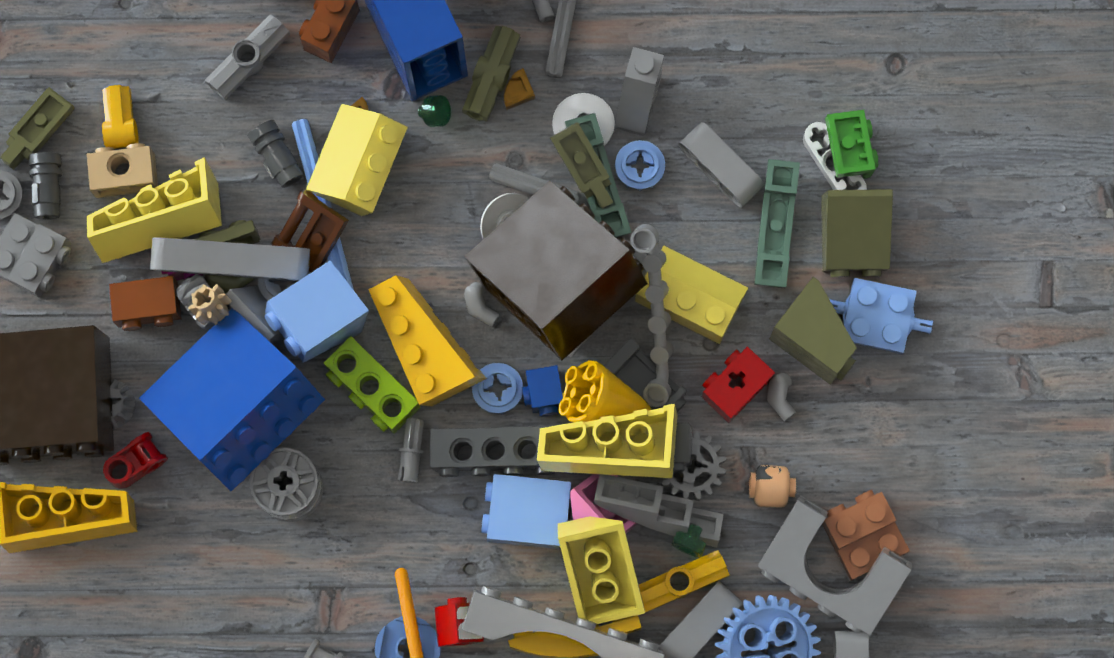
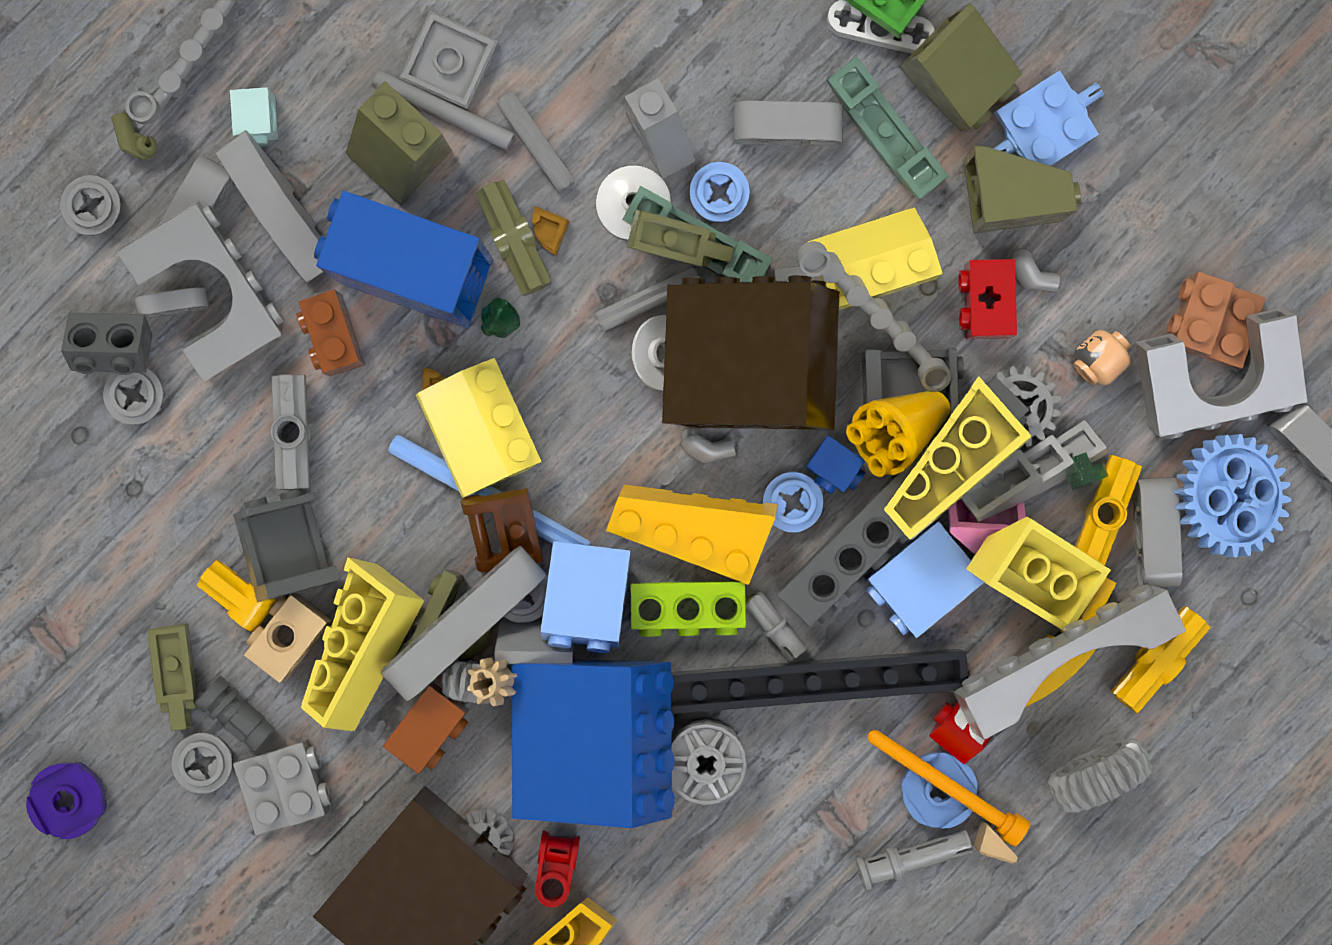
camera: 45 degrees left, 10 degrees up
(175, 115) = (283, 545): none -> dark grey panel
(278, 157) = (408, 492): dark grey axle -> none
(399, 503) = (818, 681): none -> black brick

